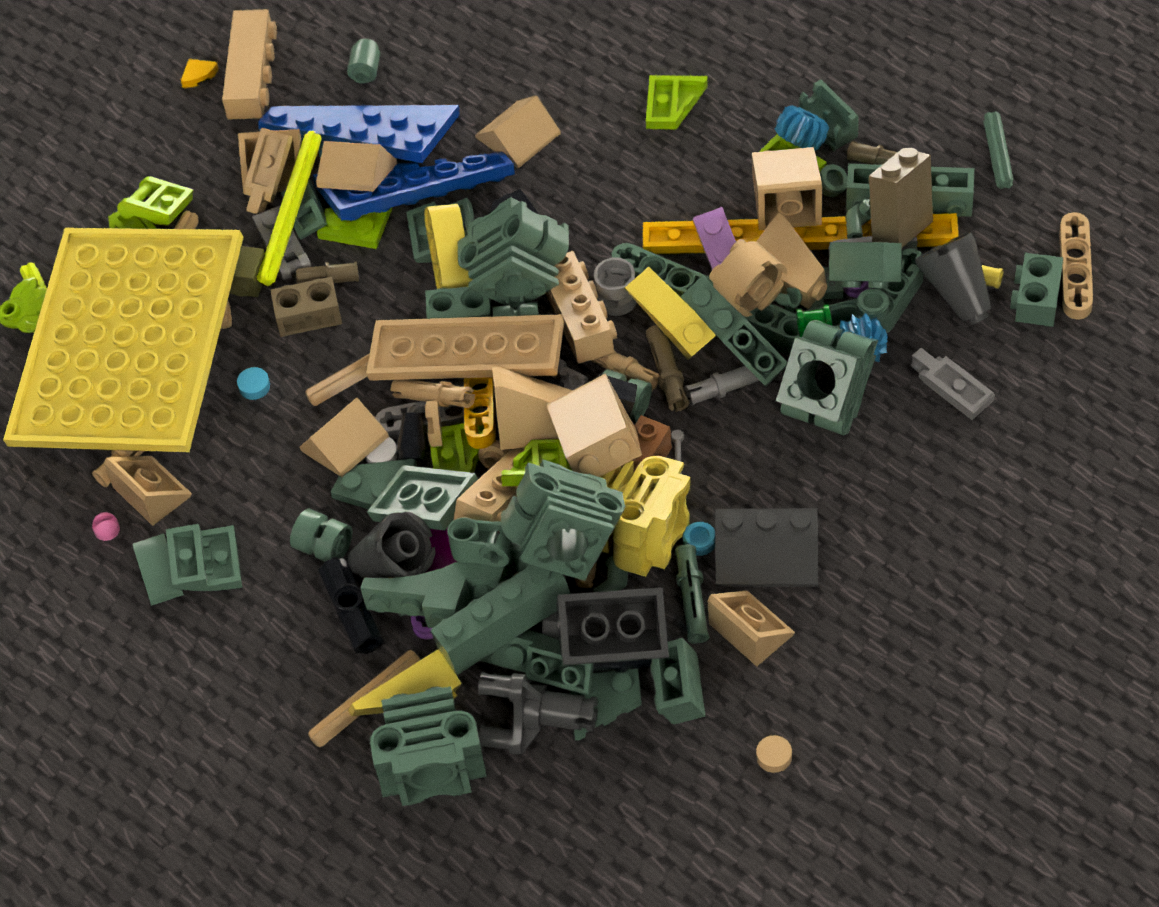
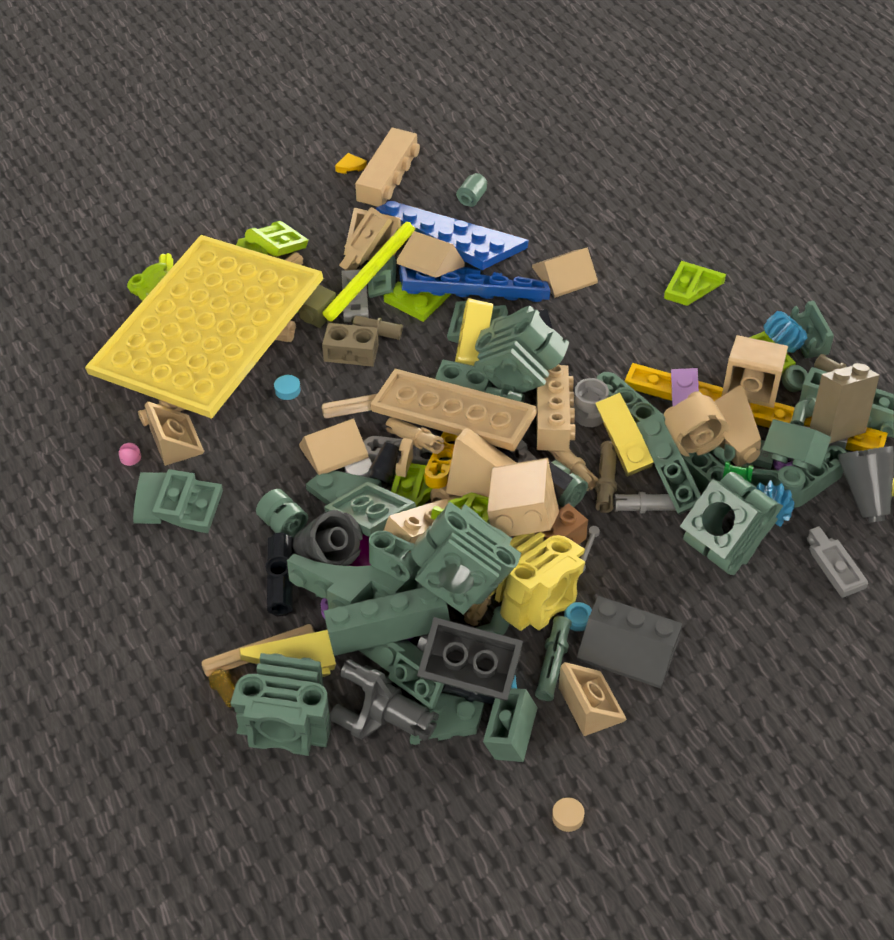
camera: 15 degrees right, 5 degrees down
(340, 747) = (222, 683): none -> clear yellow pin

